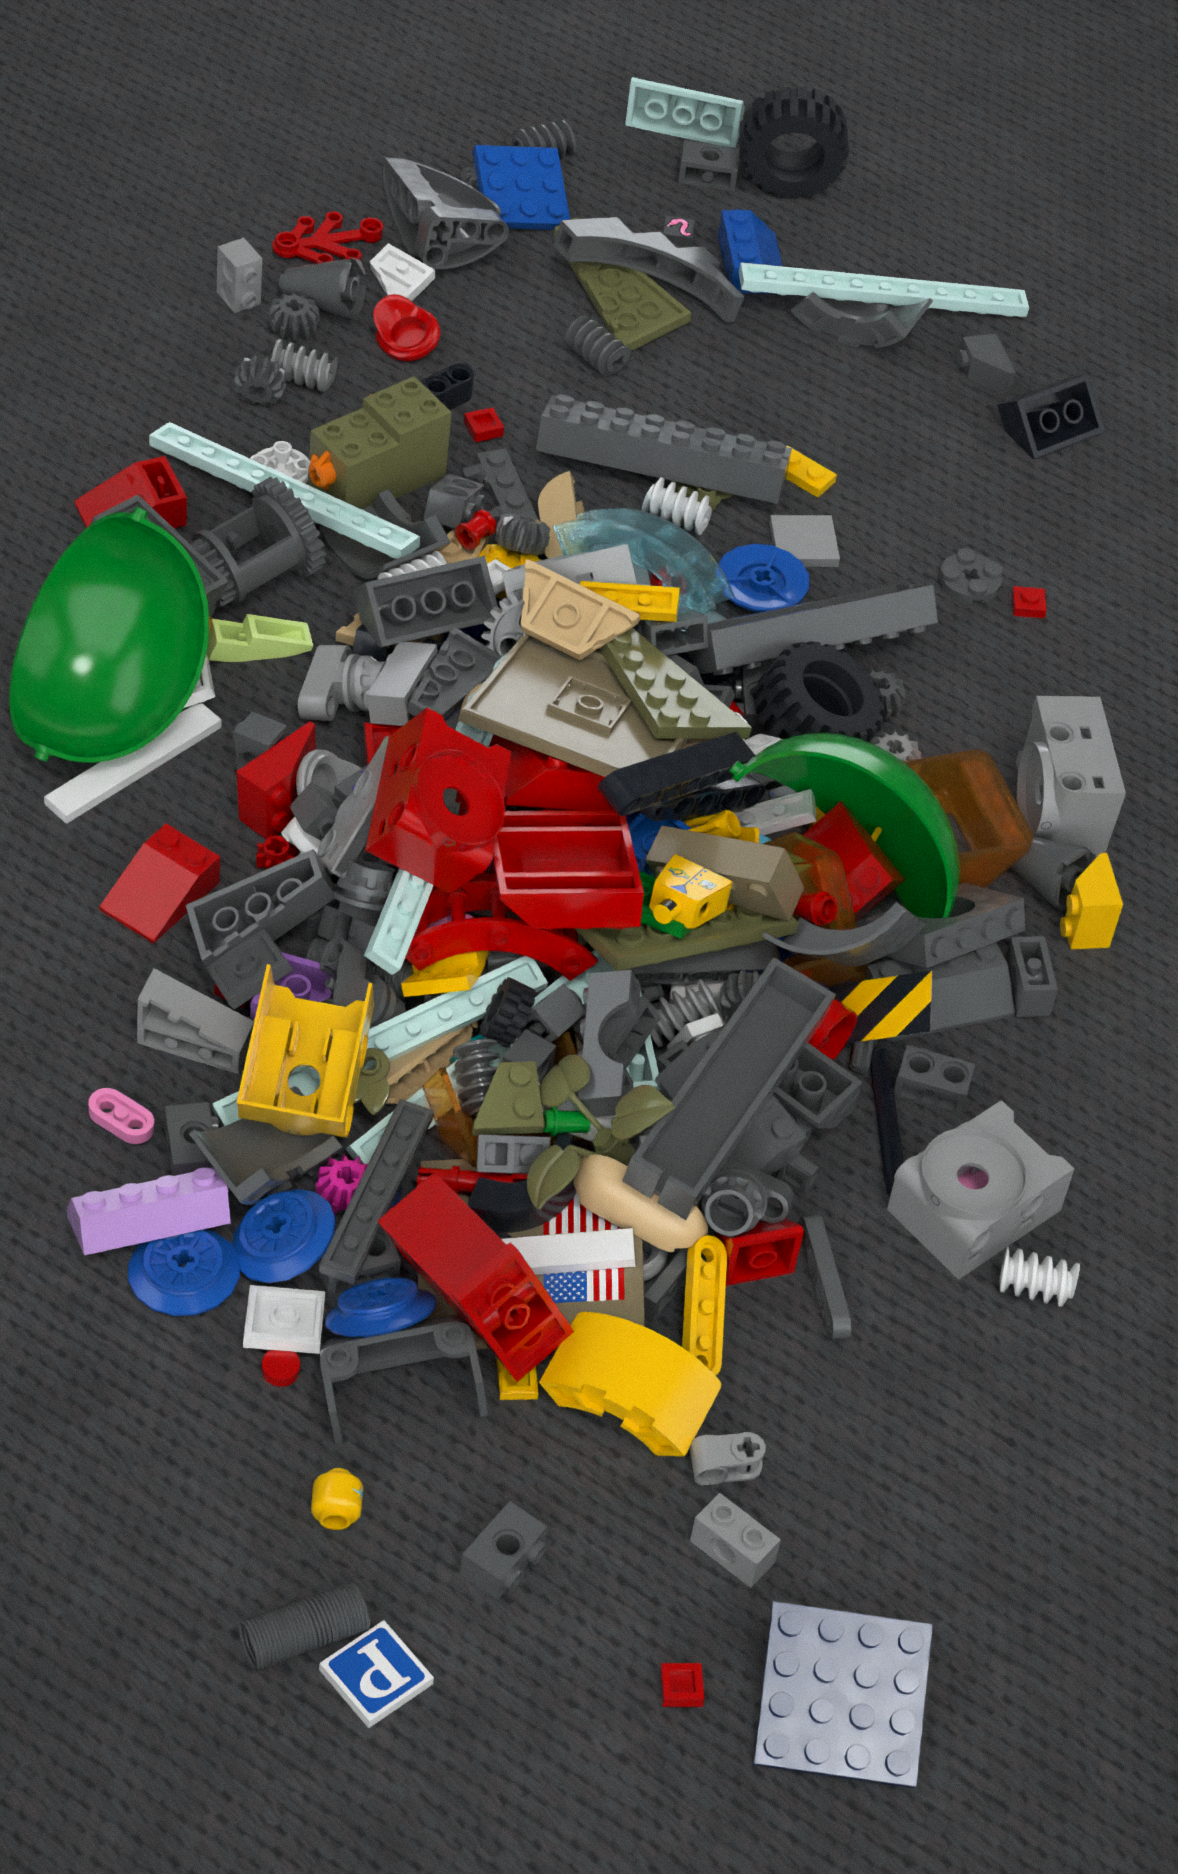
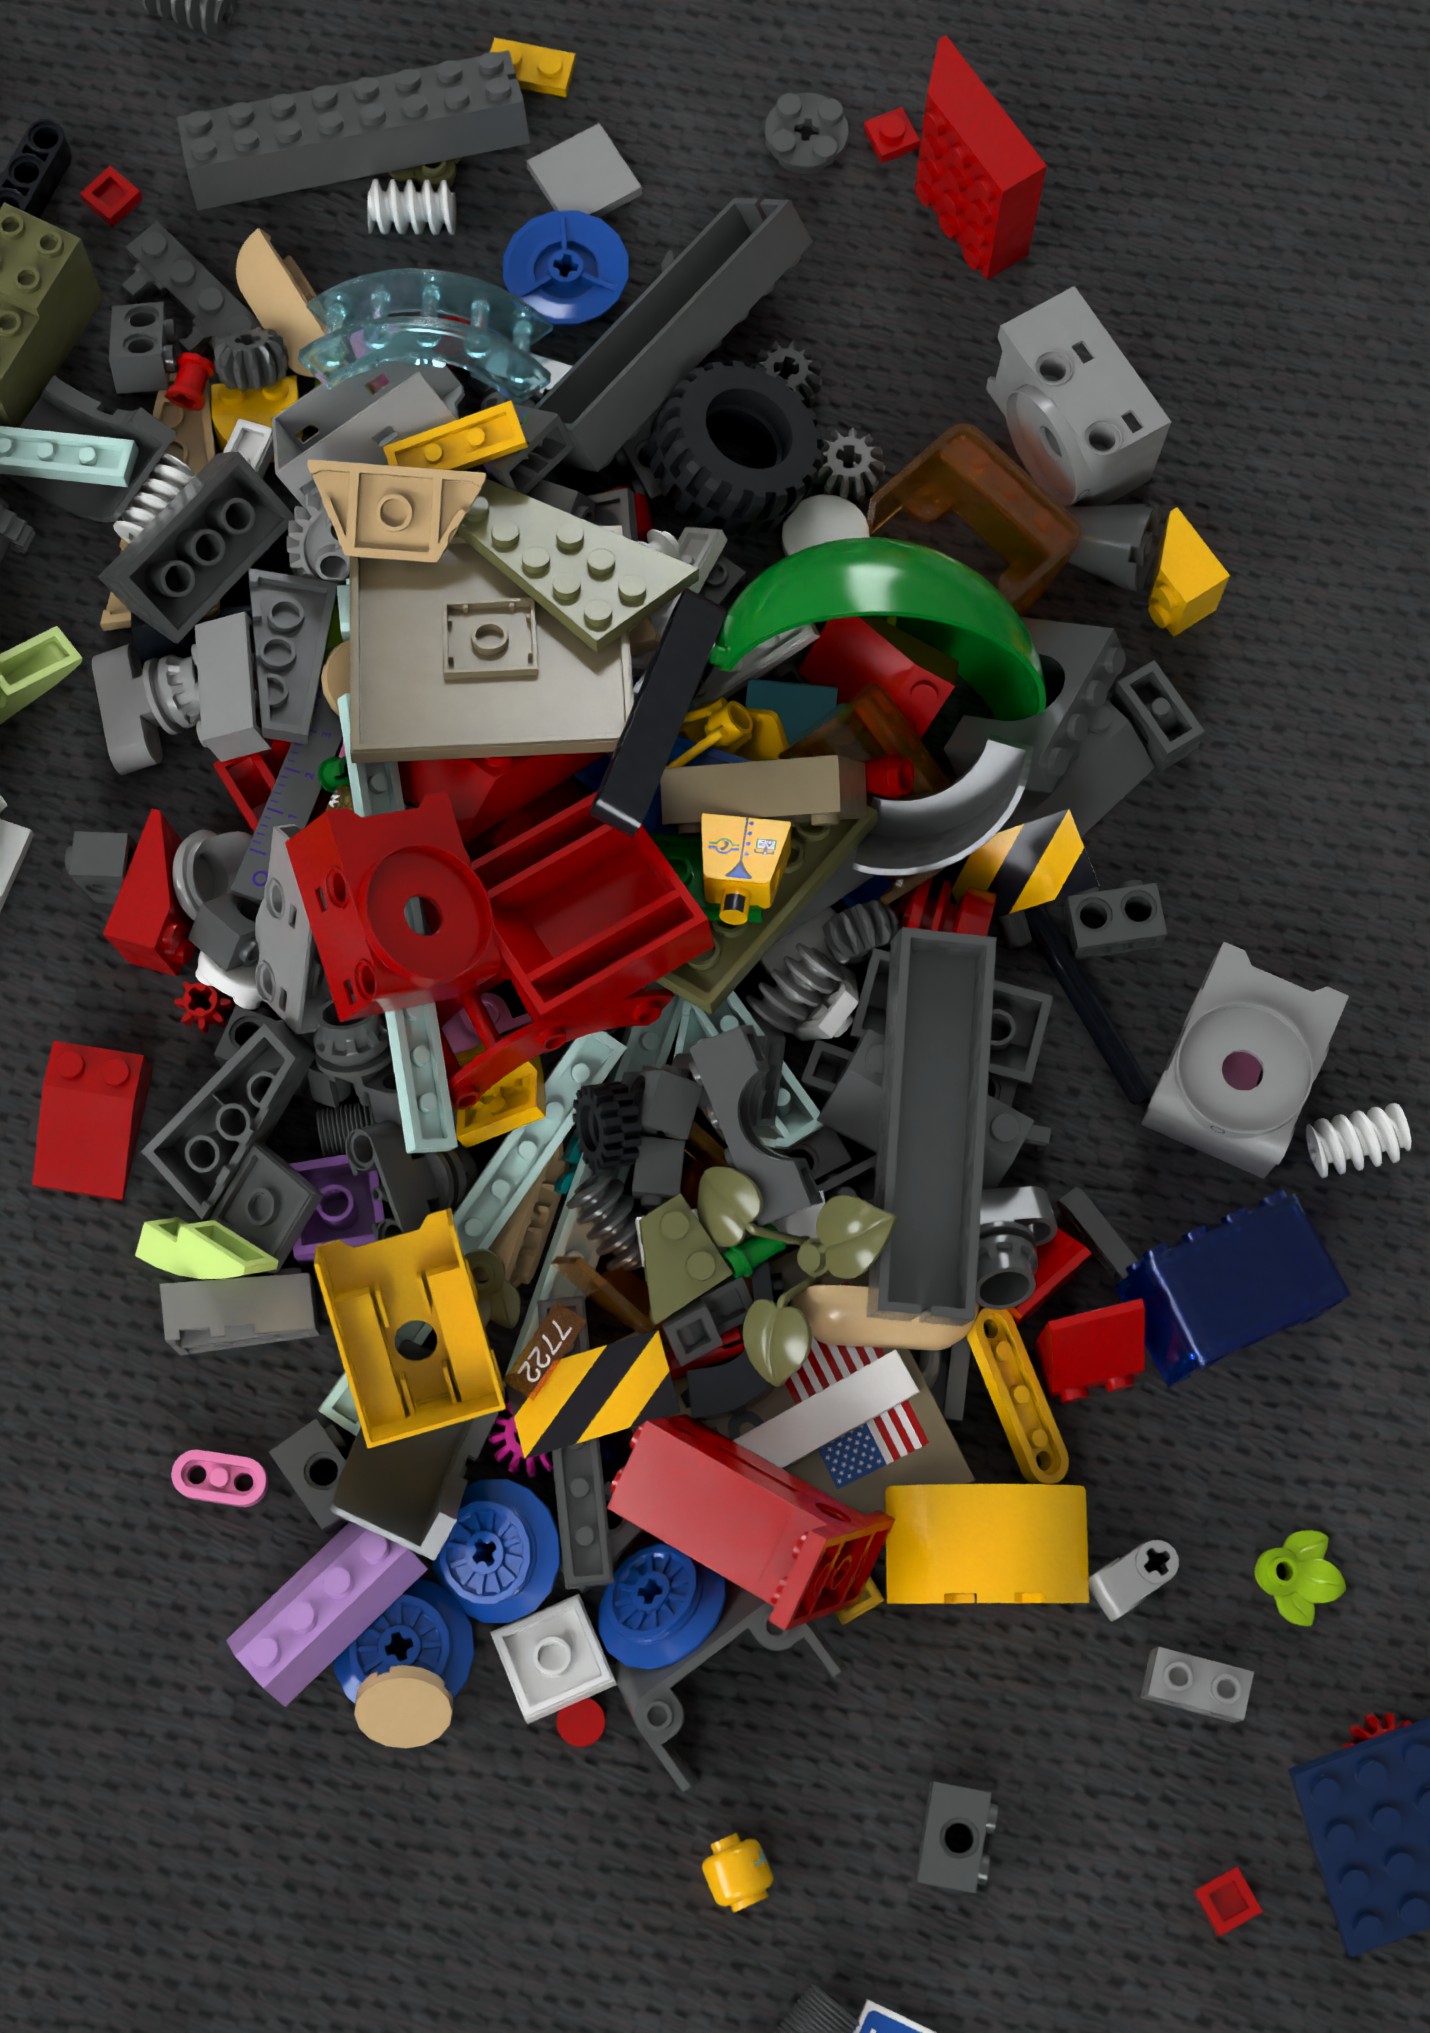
camera: 20 degrees left, 25 degrees up
(165, 1290) = (403, 1707): none -> tan tile
(192, 972) = (200, 1250): none -> yellowish green slope
(388, 1125) = (544, 1350): none -> clear orange sticker
(403, 1160) = (596, 1395): none -> sticker
(774, 1295) = (1092, 1351): none -> red slope
(853, 1521) = (1307, 1576): none -> lime plate
(896, 1299) = (1232, 1285): none -> clear blue windscreen
(1070, 618) = (976, 167): none -> red slope

